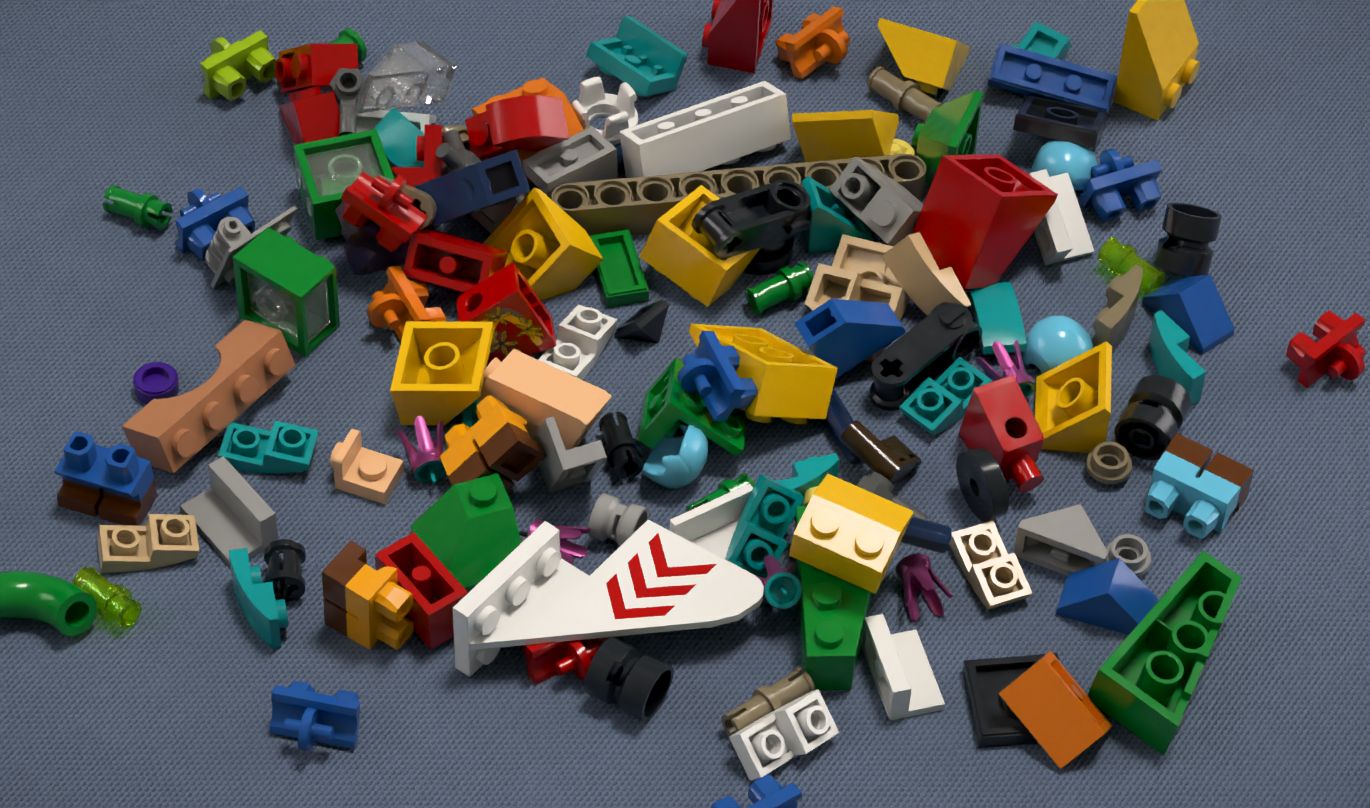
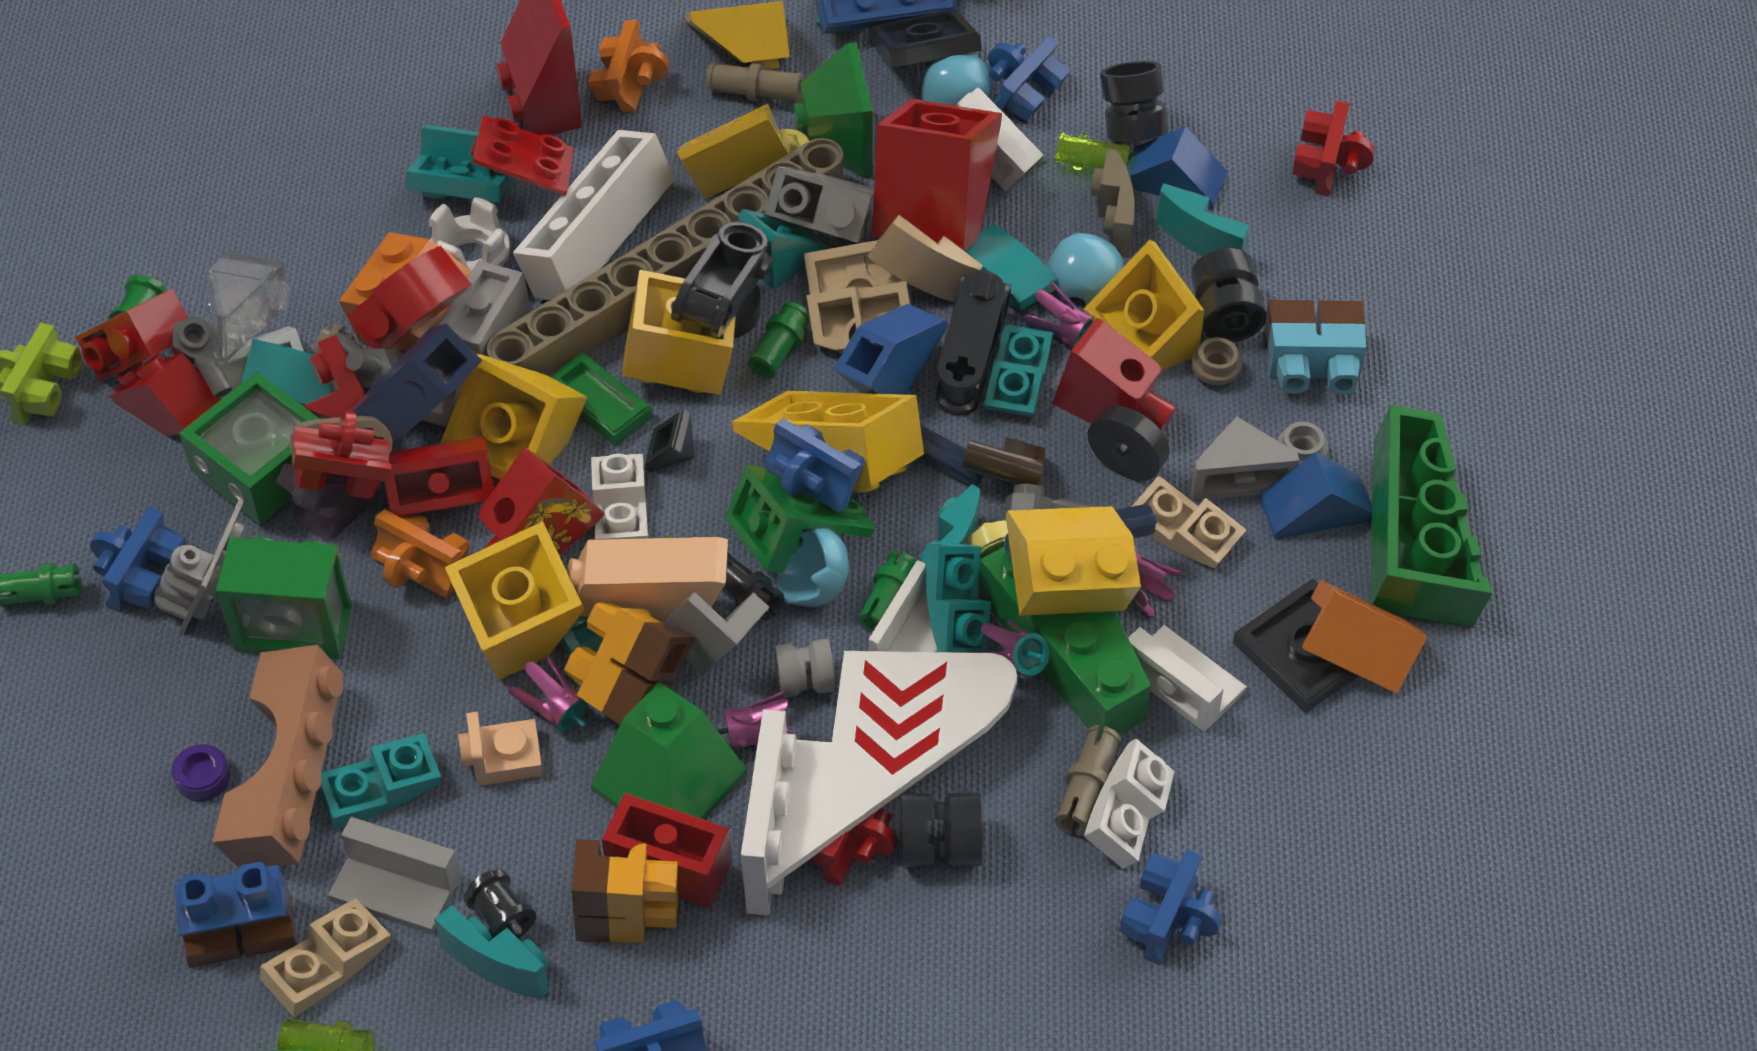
camera: 30 degrees left, 5 degrees up
(679, 66) = (522, 154): none -> red hinge

